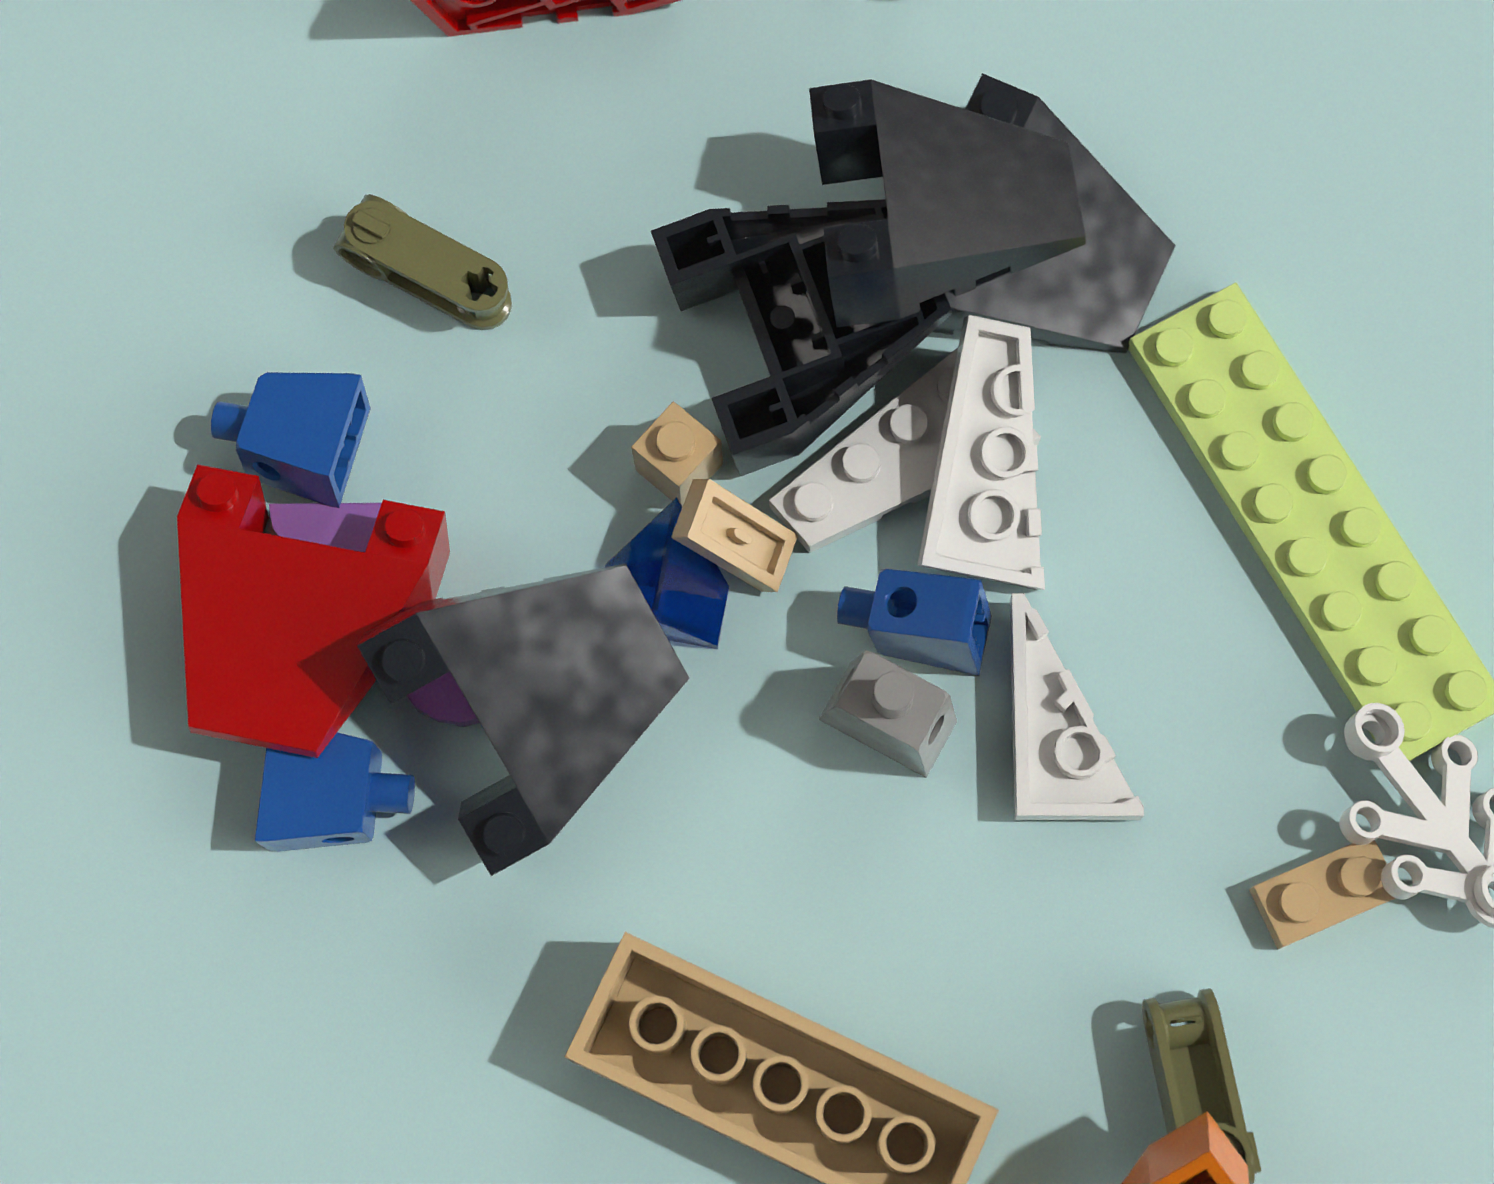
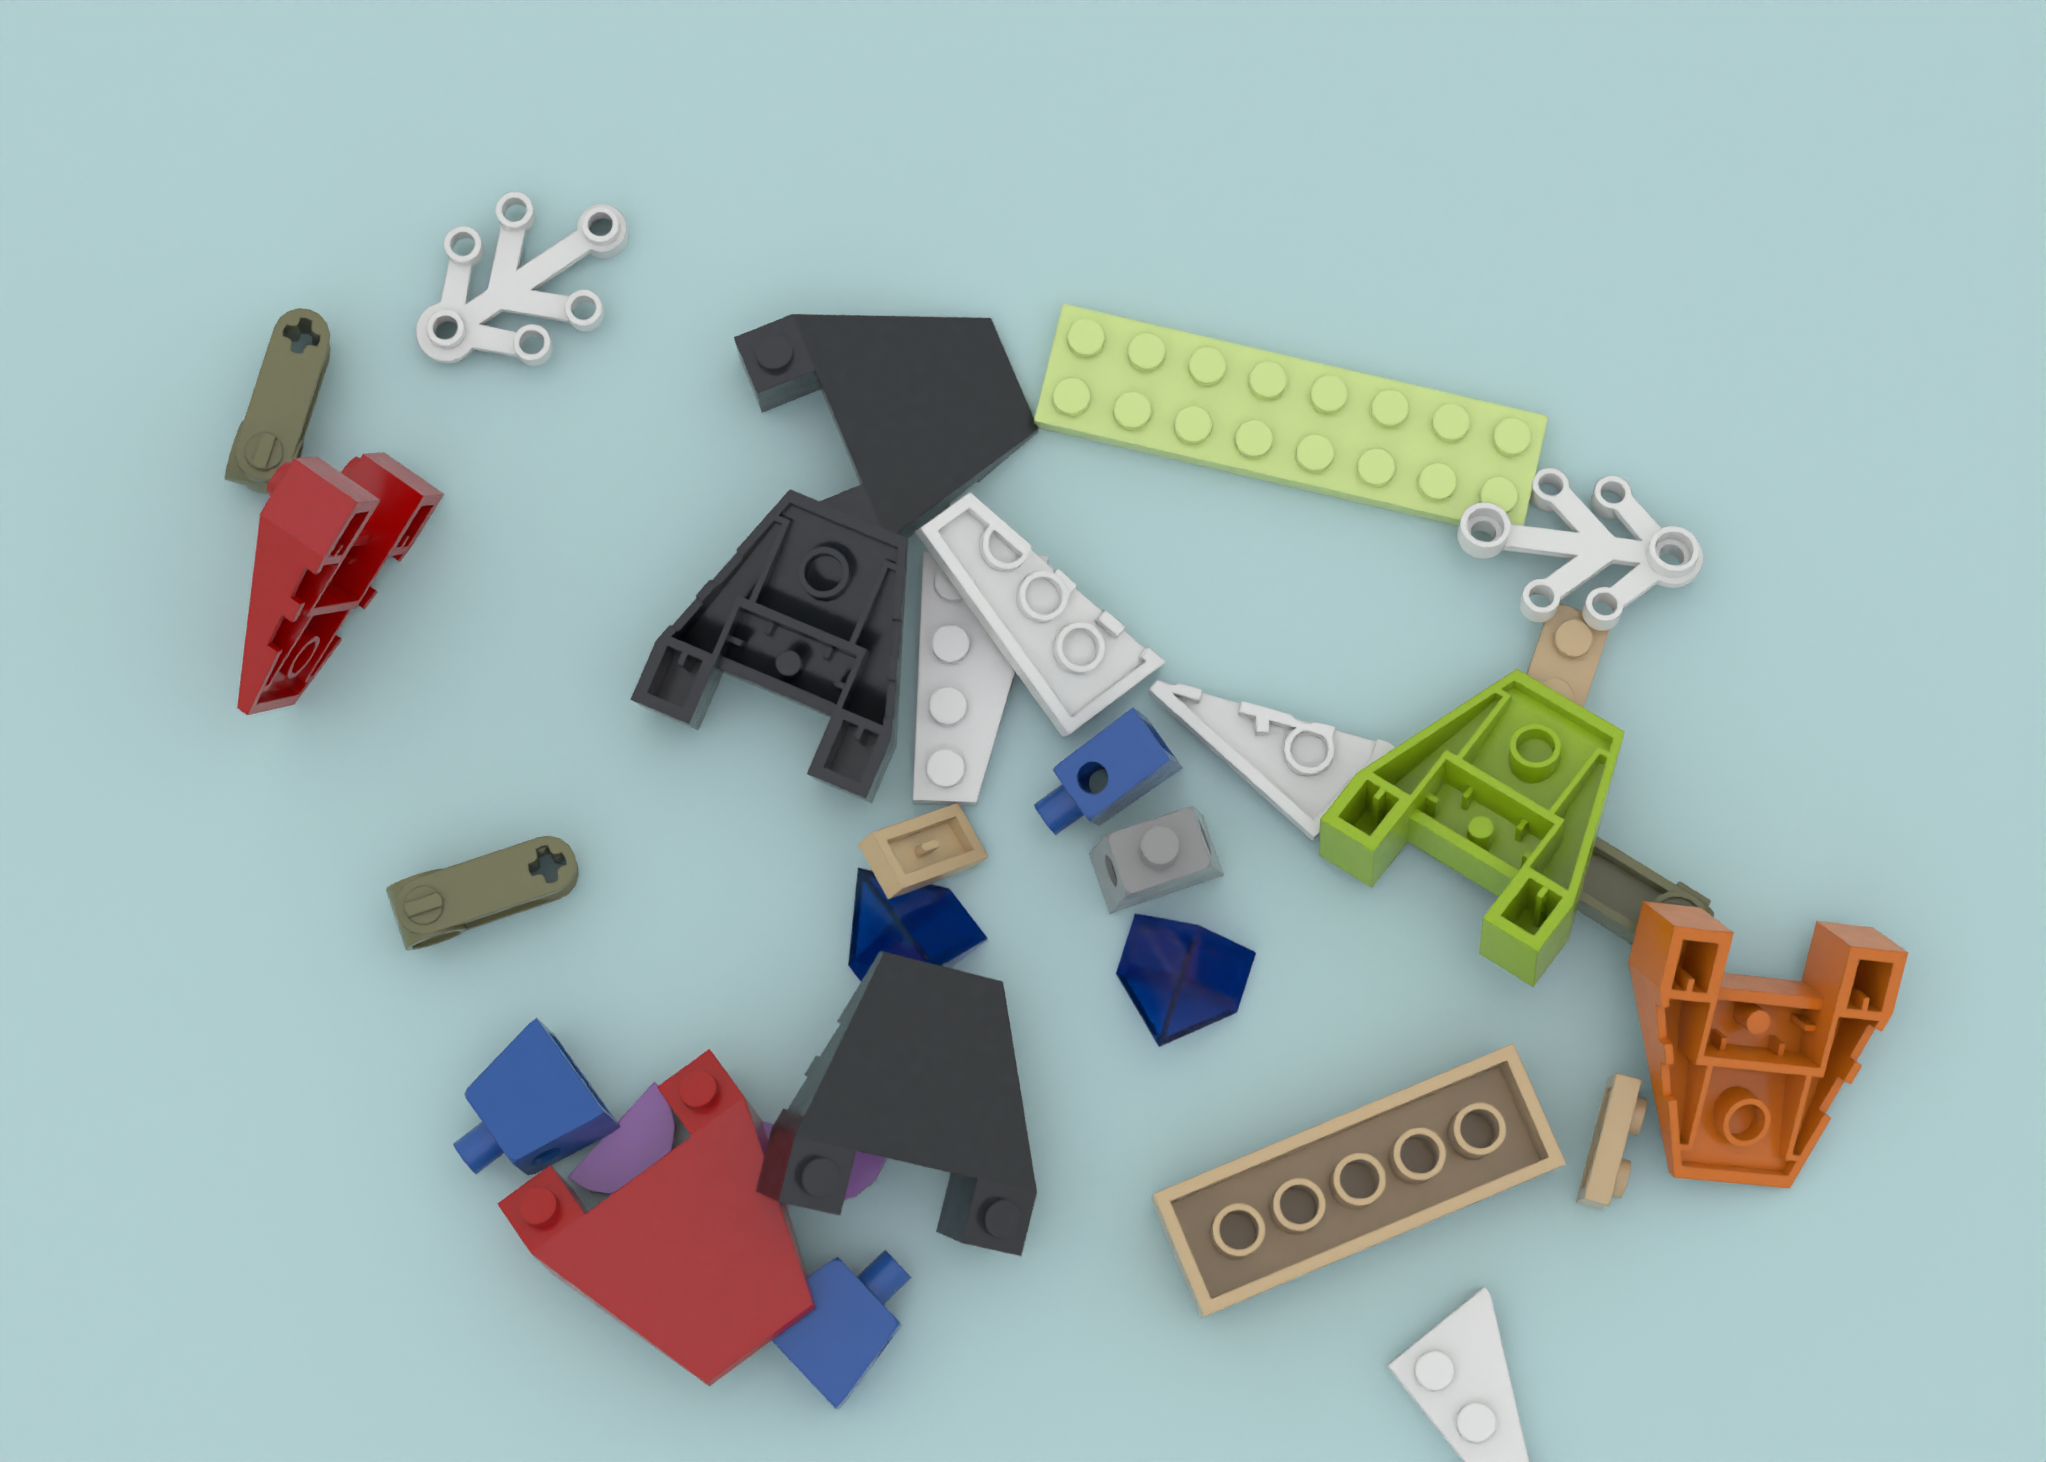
camera: 50 degrees left, 5 degrees up
(676, 452) = (817, 836): tan brick -> none
(819, 813) = (1181, 975): none -> clear blue slope
(957, 193) = (827, 445): black wedge -> none
(1182, 929) = (1502, 796): none -> lime wedge

